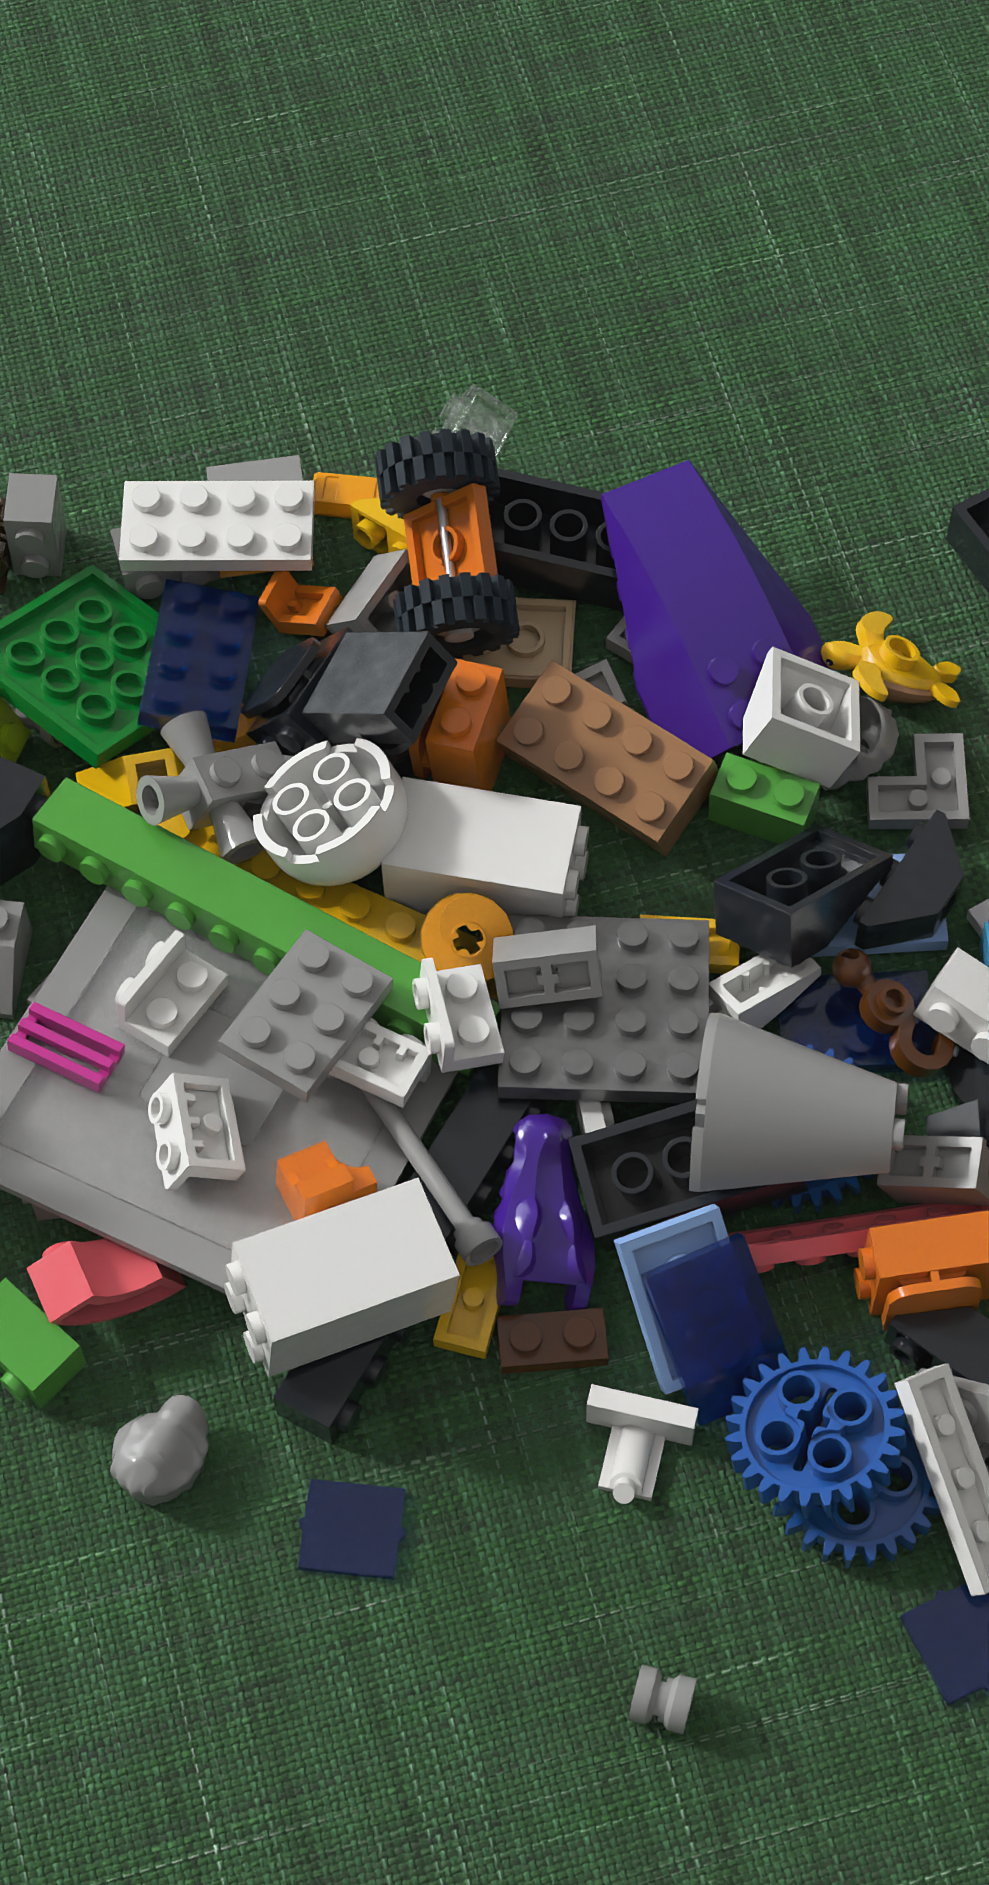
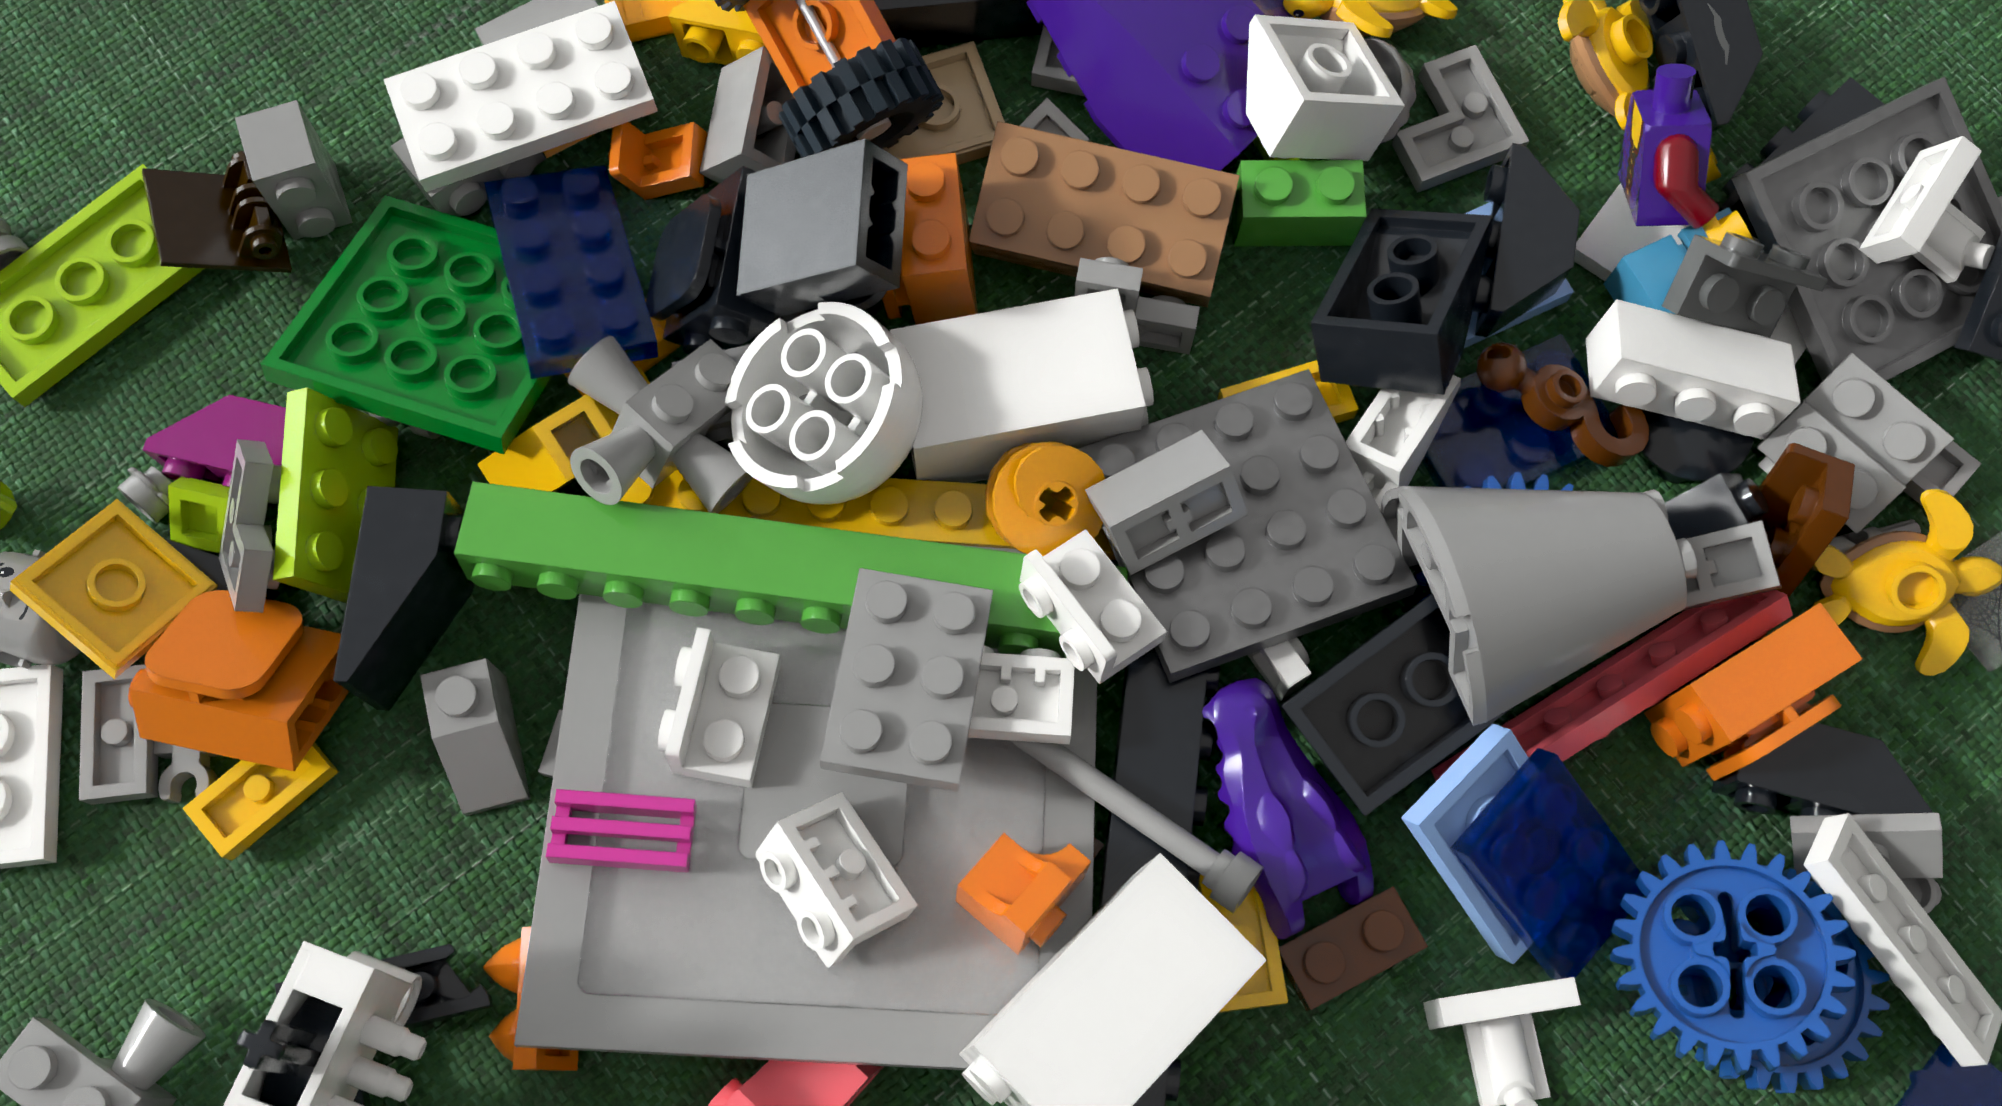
camera: 25 degrees left, 10 degrees up
(607, 847) = (1161, 320): none -> light grey plate

